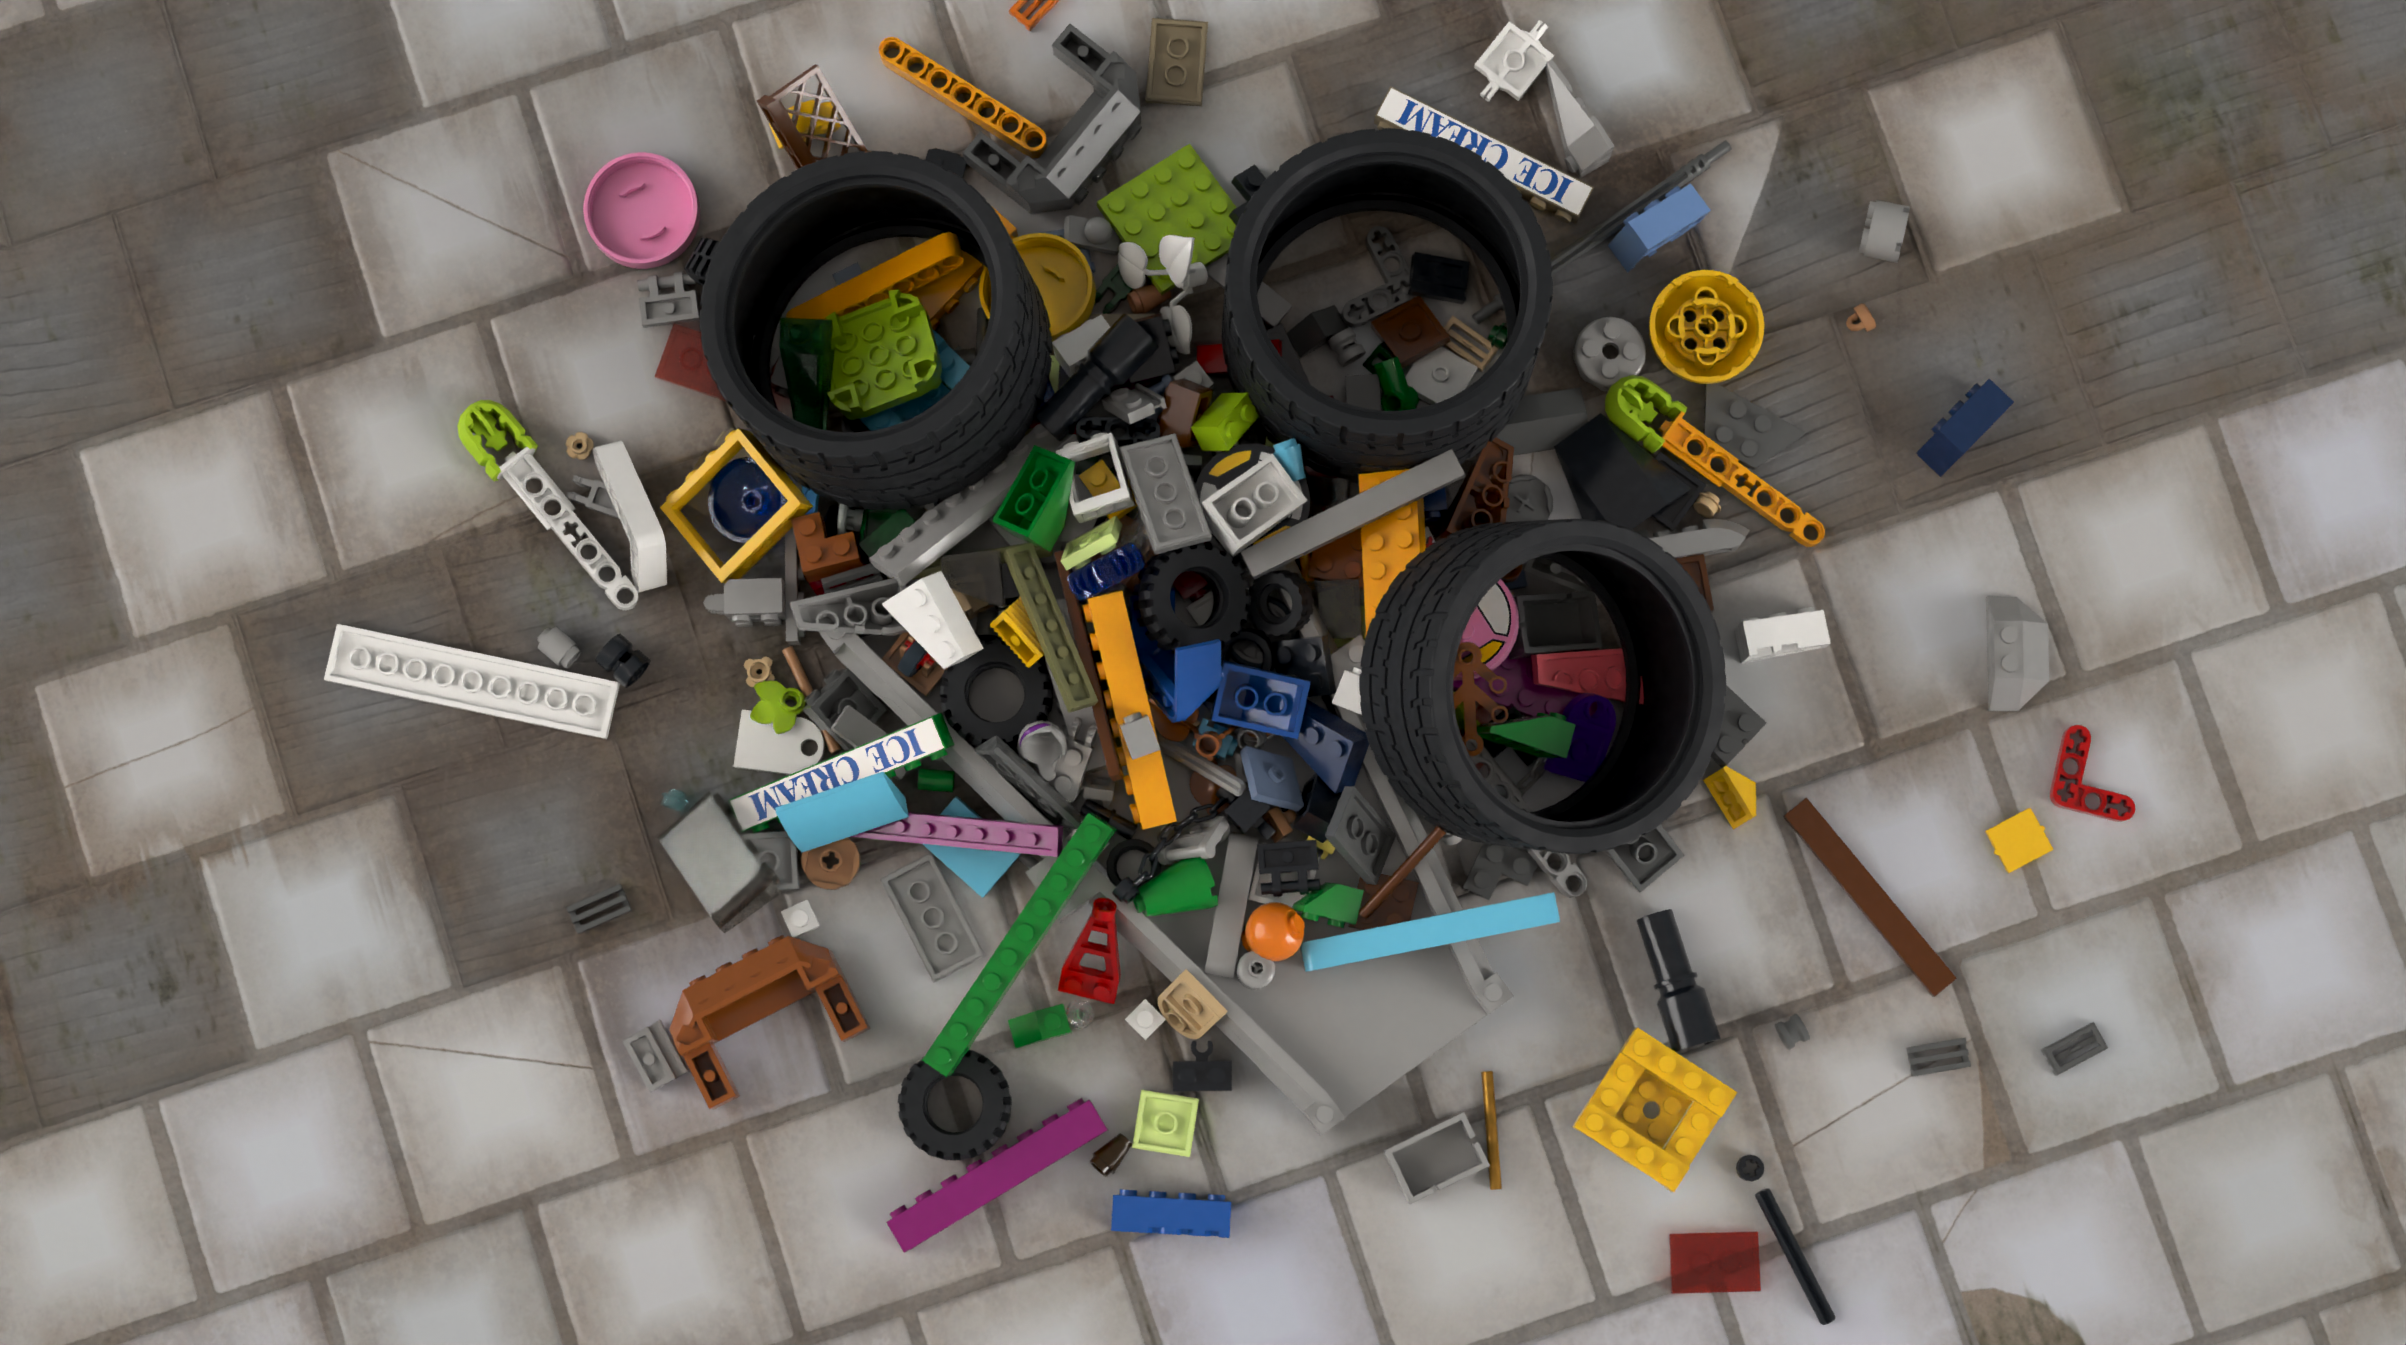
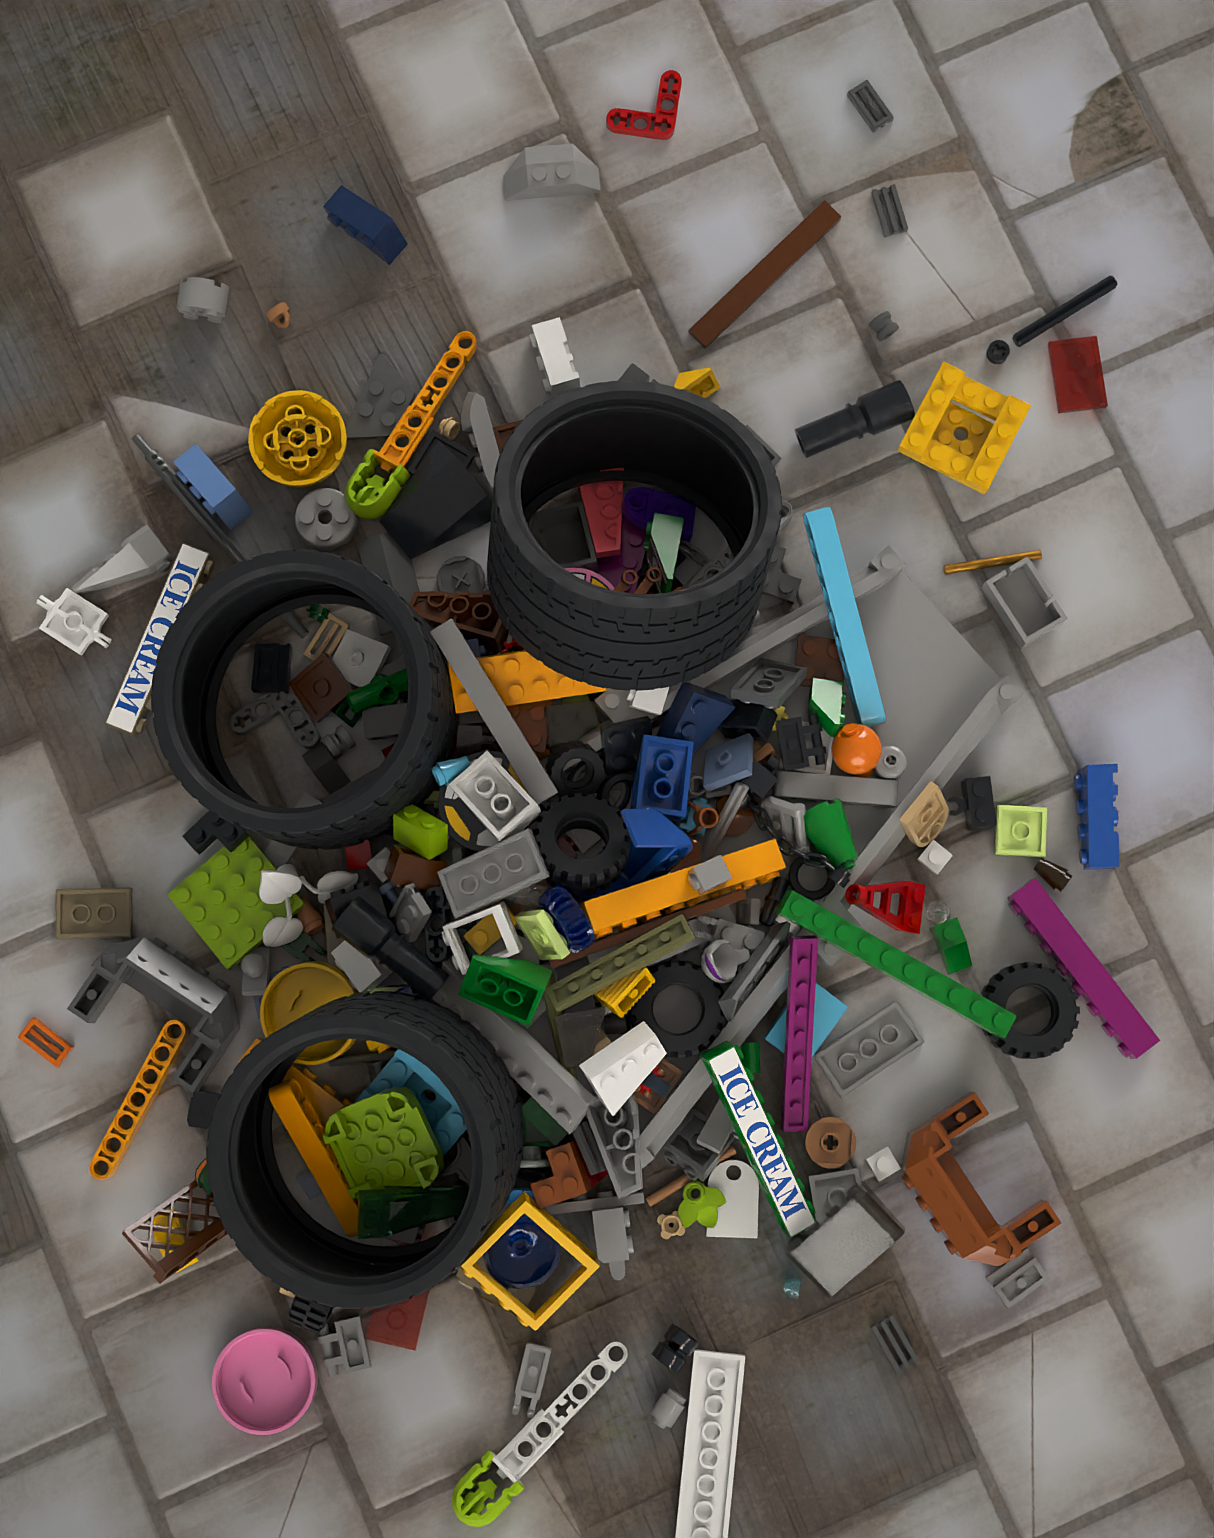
camera: 95 degrees left, 0 degrees up
(586, 449) = (491, 1409): tan plate -> none
(635, 514) = (543, 1352): white beam -> none
(842, 811) = (792, 1133): medium azure slope -> none
(1402, 872) = (795, 646): reddish brown bar -> none
(2019, 840) = (705, 160): yellow piece -> none

